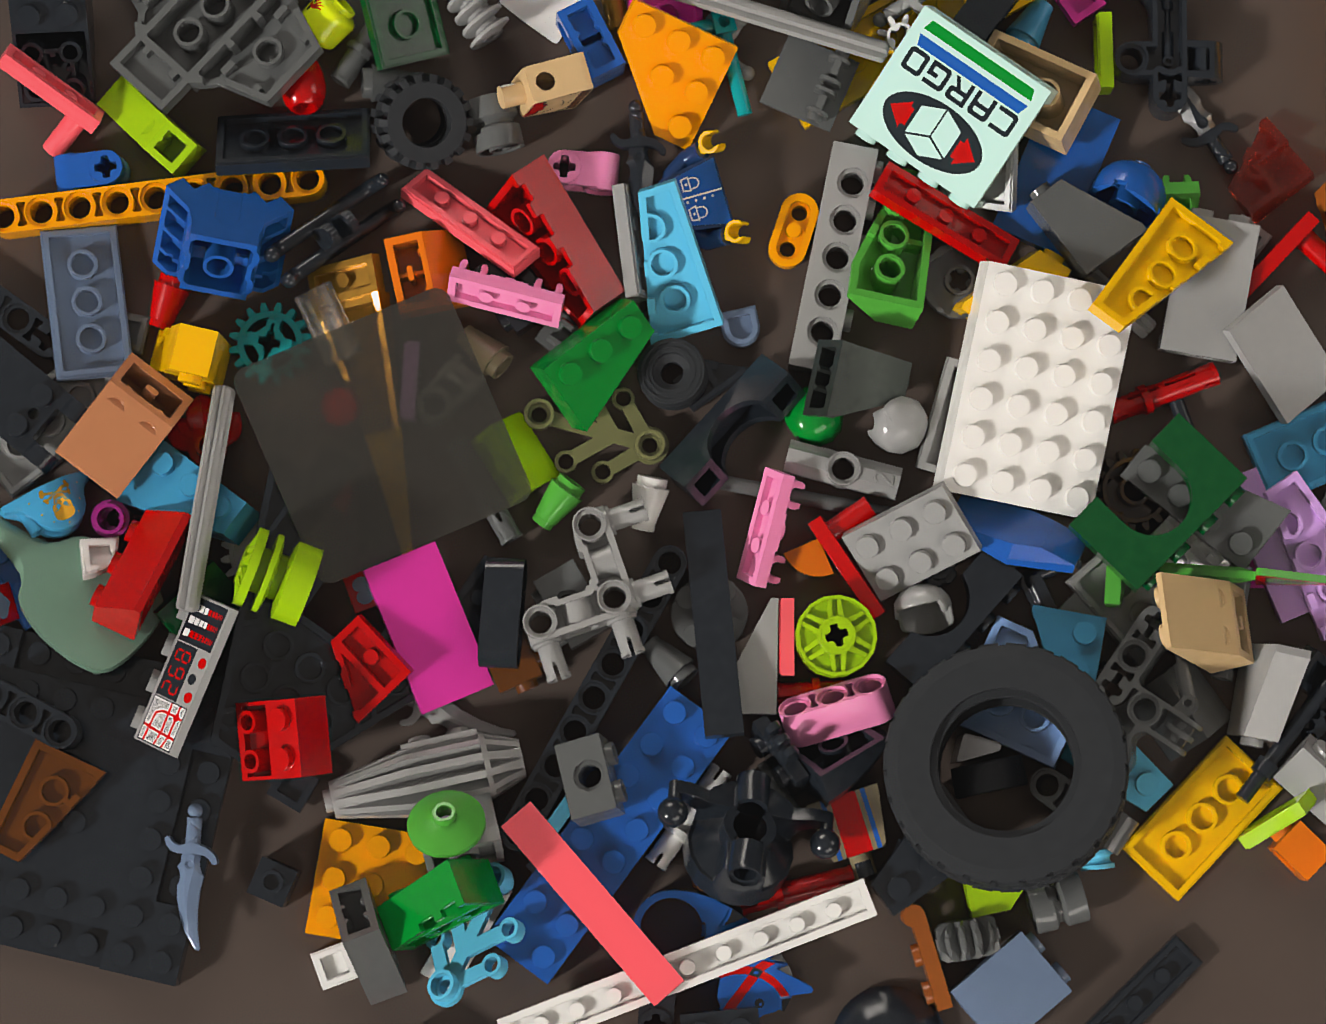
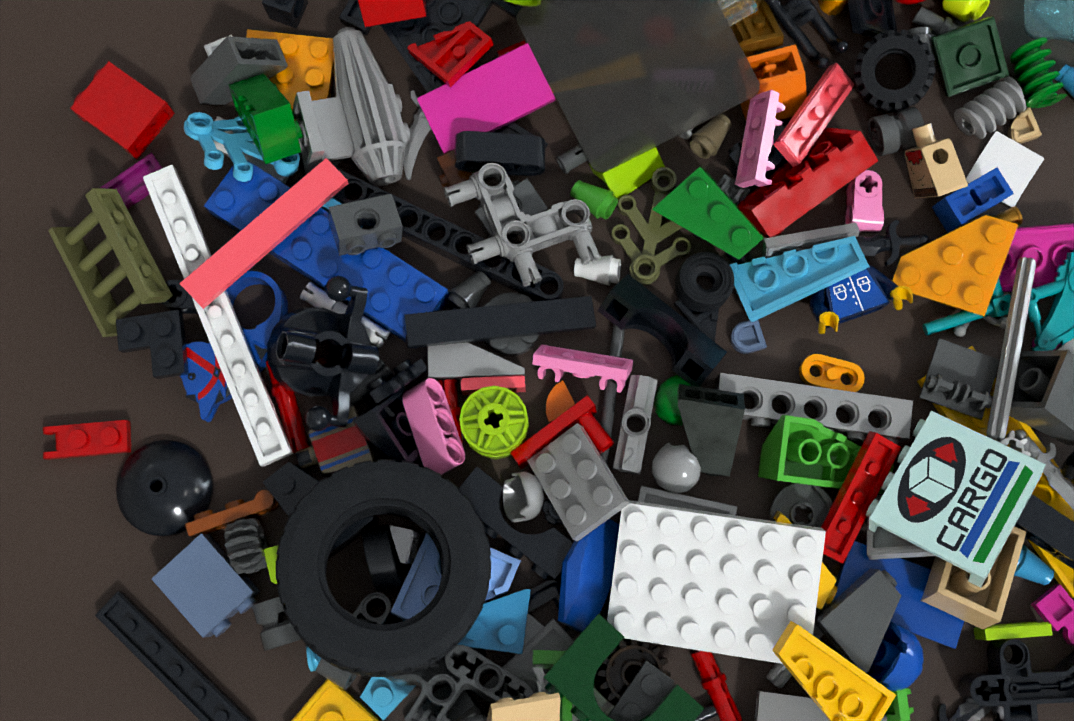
camera: 90 degrees right, 5 degrees down
(448, 835) = (317, 118): bright green dish -> none

